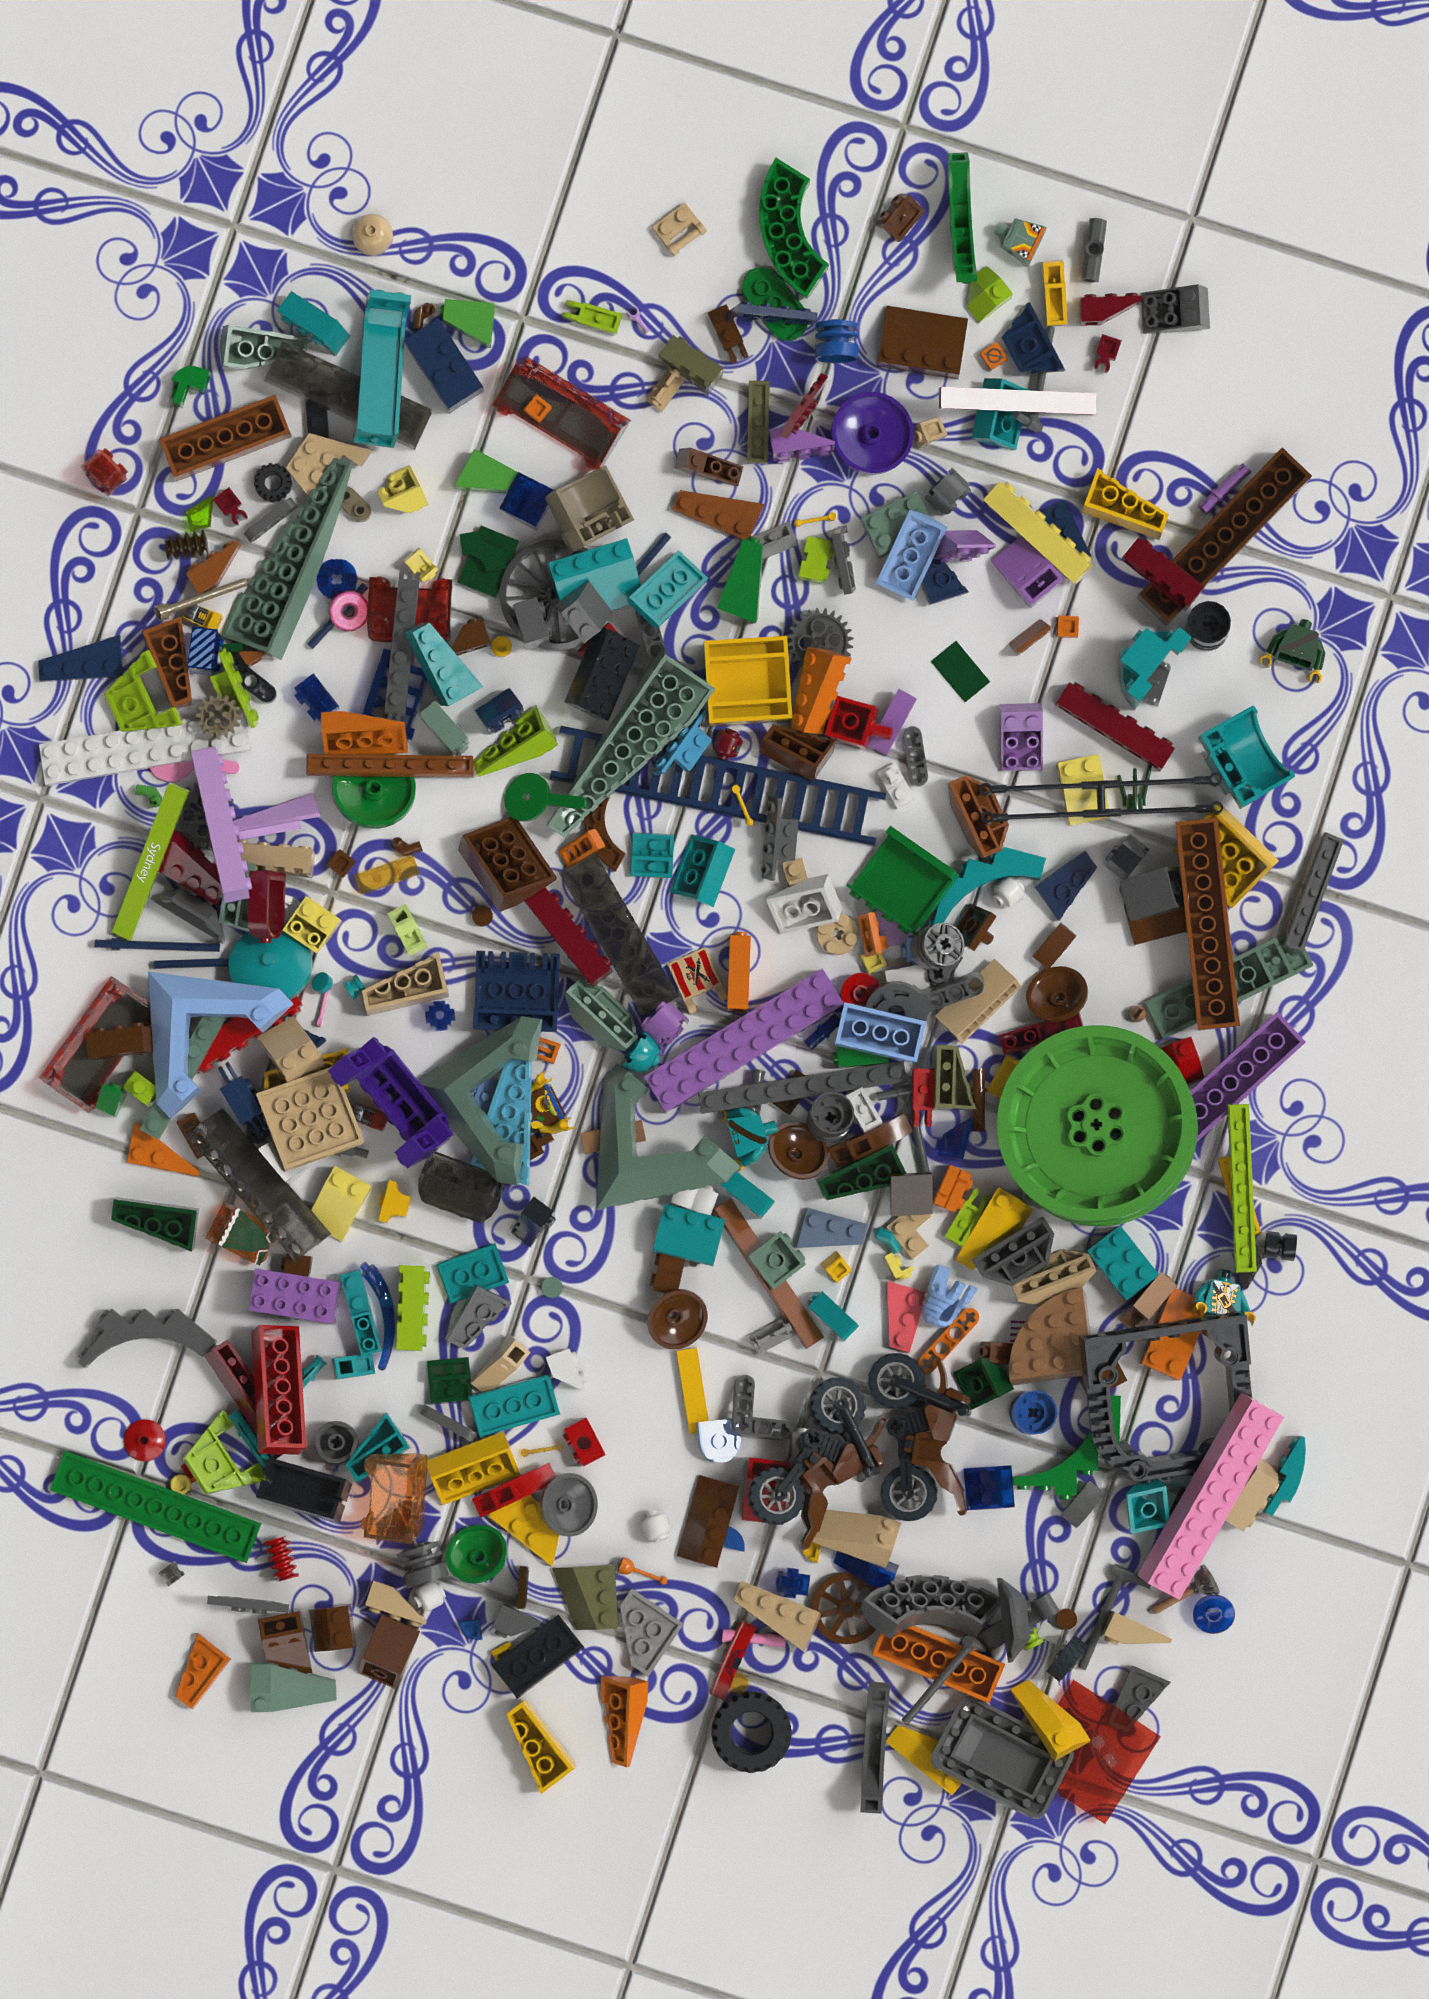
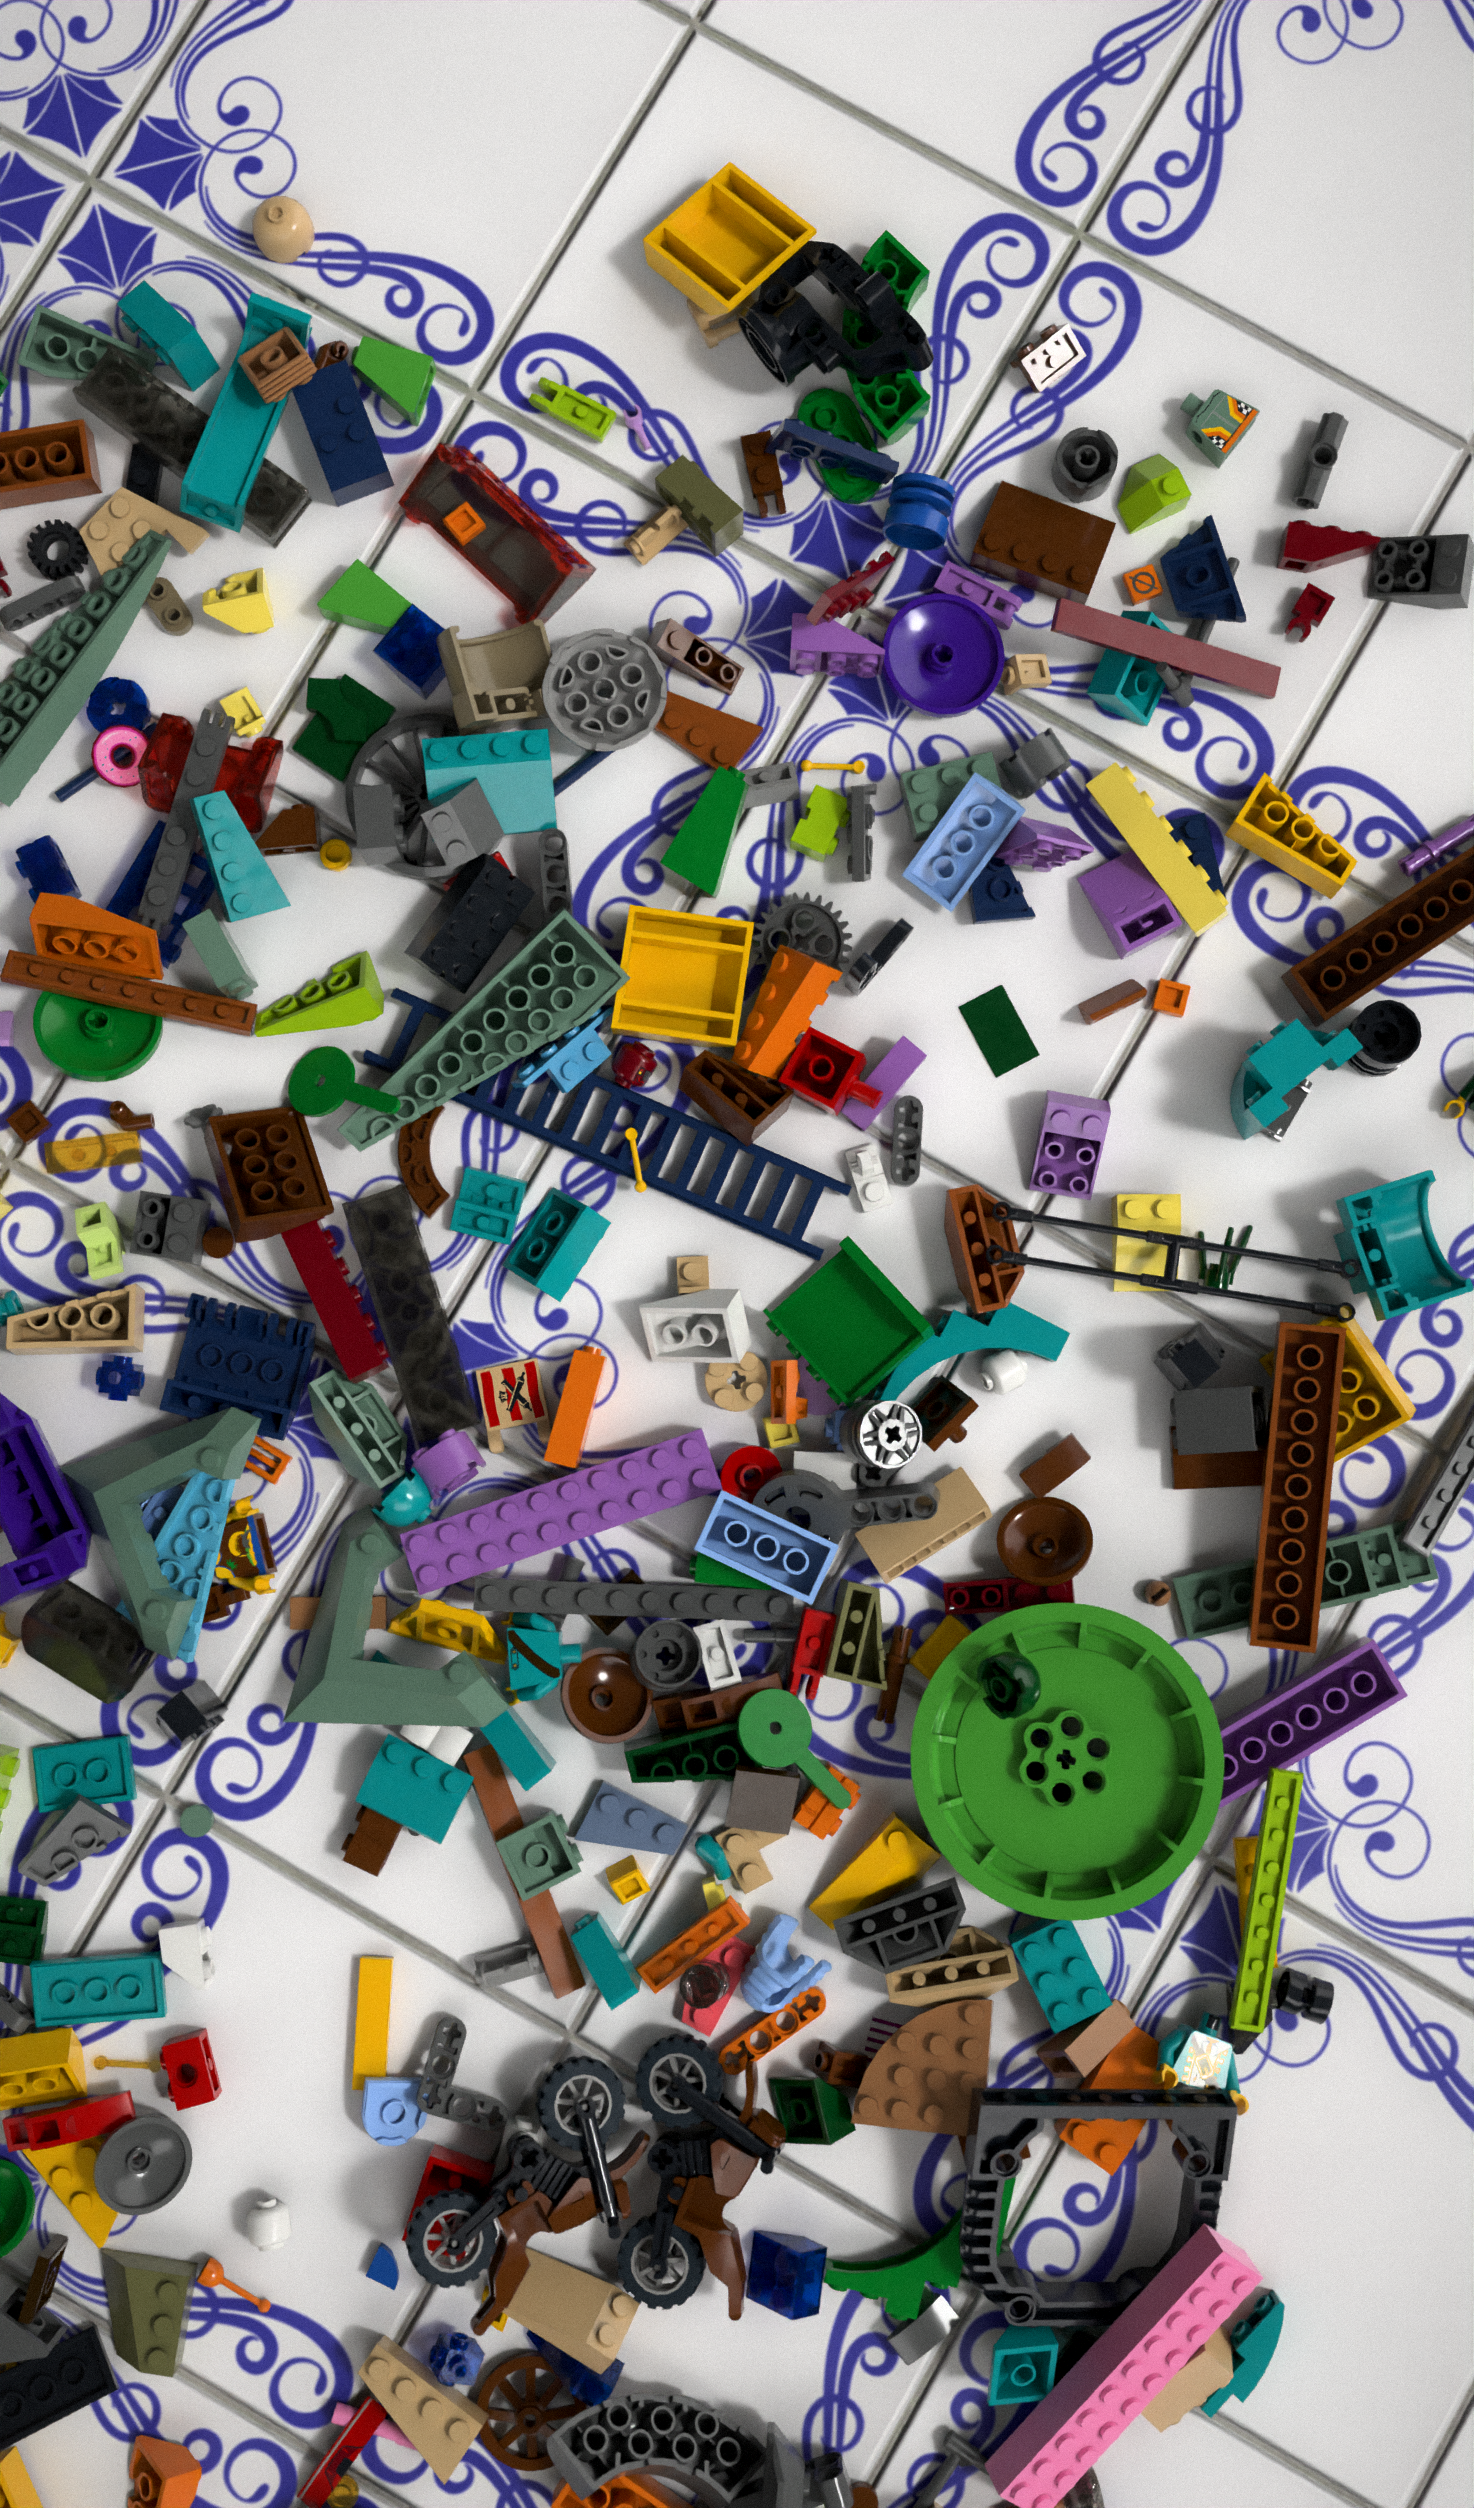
camera: 15 degrees right, 0 degrees up
(396, 333) = (277, 365): none -> medium nougat brick
(450, 912) = (170, 1227): none -> dark grey slope
(454, 836) = (199, 1116): none -> dark grey plant
(499, 711) = (309, 948): dark blue slope -> none
(501, 1364) = (93, 1923): tan slope -> none
(592, 841) = (403, 1167): orange slope -> none
(647, 1631) = (221, 2381): light grey plate -> none
(661, 483) = (597, 662): none -> light grey brick
(667, 589) = (592, 819): teal plate -> none
(673, 188) = (725, 240): none -> yellow slope
(682, 1327) = (373, 1925): reddish brown dish -> none
(687, 1129) = (450, 1629): none -> yellow wing
(708, 1521) = (350, 2232): reddish brown slope -> none
(726, 238) = (793, 335): none -> black piece
(758, 422) = (779, 607): olive plate -> none
(779, 838) = (679, 1222): dark grey bracket -> none
(822, 1032) = (682, 1521): clear blue pin -> none
(868, 646) = (869, 965): none -> black beam
(876, 382) = (983, 593): none -> medium lavender plate
(886, 1295) = (693, 1944): none -> orange tile
(899, 1315) = (704, 1984): none -> clear smoke wheel
(921, 1155) = (791, 1742): none -> green piece
(939, 297) = (1070, 467): none -> dark grey brick
(955, 1141) = (846, 1731): clear blue slope -> none
(961, 217) = (1138, 364): green arch -> none
(966, 1220) = (838, 1851): lime hinge -> none
(1044, 1415) = (880, 2194): blue wheel -> none
(1050, 1083) = (1010, 1684): none -> dark green cylinder
(1054, 292) = (1250, 509): yellow slope -> none
(1065, 883) = (1088, 1377): dark blue wing -> none
(1114, 726) = (1212, 1159): dark red brick -> none
(1163, 573) = (1335, 946): dark red wedge -> none
(1185, 1058) = (1218, 1674): red slope -> none

